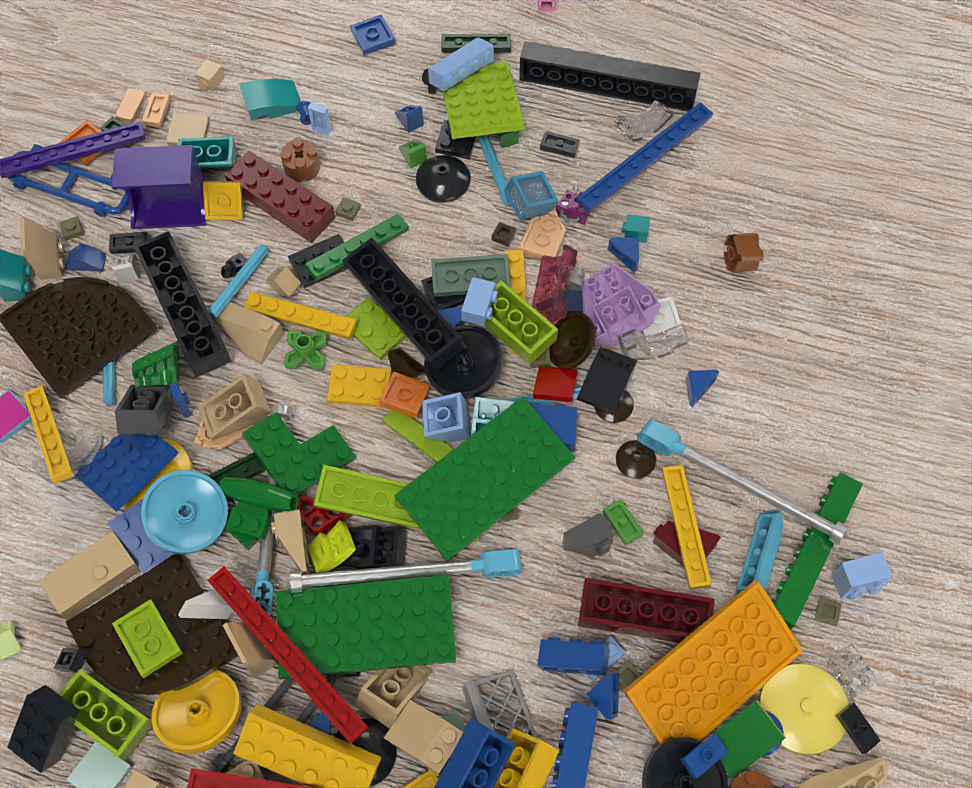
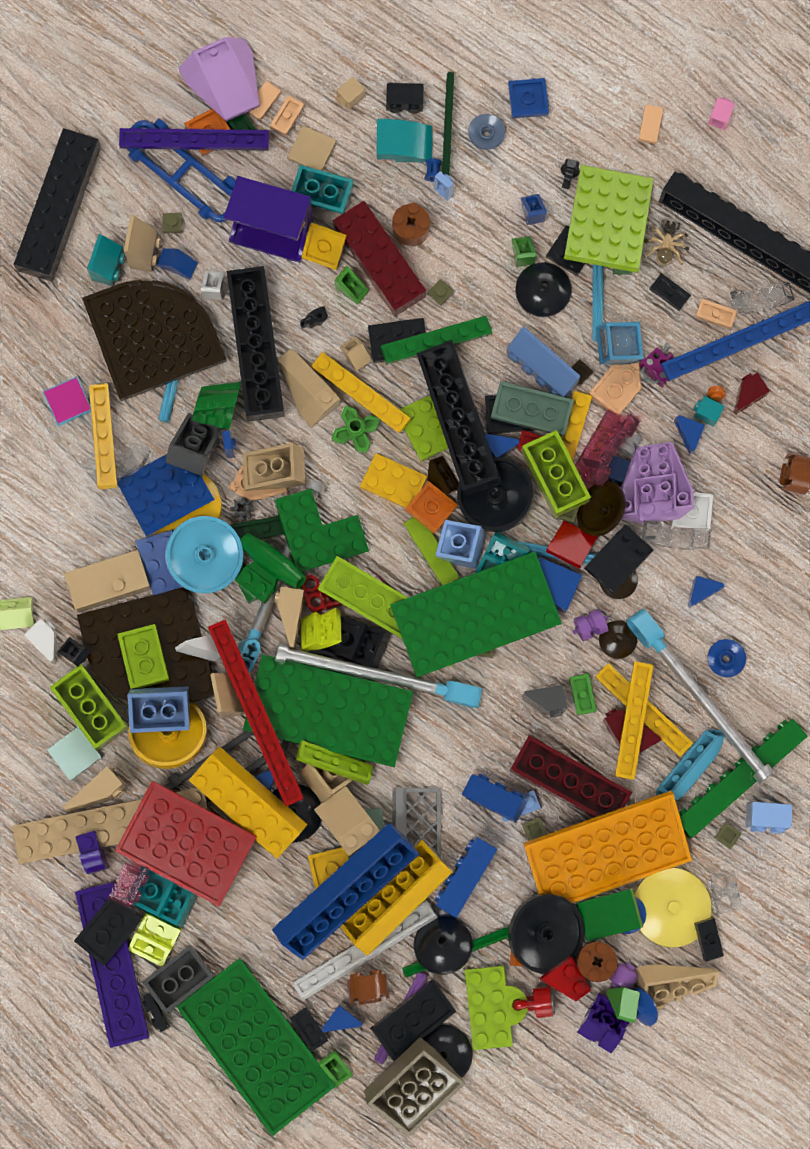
camera: 15 degrees right, 15 degrees up
(34, 659) = (44, 639): none -> white slope
(43, 728) = (40, 704): black brick -> none
(85, 94) = (223, 76): none -> lavender wedge
(126, 241) = (222, 258): black plate -> none
(178, 687) = (159, 709): none -> medium blue brick
(213, 458) = (241, 514): none -> dark grey gear
(237, 282) = (314, 336): medium azure axle -> none
(258, 226) = (350, 285): none -> bright green slope
(260, 63) = (404, 97): none -> black piece
(305, 67) = (448, 123): none -> dark green tile
(344, 69) = (490, 124): none -> sand blue dish
(389, 678) = (334, 762): none -> lime tile
(453, 42) = (629, 144): plate -> none
(461, 64) = (604, 171): light blue brick -> none
(465, 233) = (542, 364): none -> medium blue slope
(479, 301) = (527, 447): light blue brick -> none
(488, 21) = (650, 124): none -> light nougat tile
(541, 109) = (666, 245): none -> animal
(606, 450) = (592, 624): none -> medium lavender wheel
(606, 695) = (510, 839): blue slope -> none
(608, 149) = (716, 314): none -> light nougat plate
(637, 209) = (716, 393): none -> orange plate
(658, 504) = (654, 719): none -> yellow plate
(667, 201) = (750, 392): none -> dark red slope
(704, 755) = (570, 916): blue plate -> none
(750, 431) = (733, 651): none -> blue dish

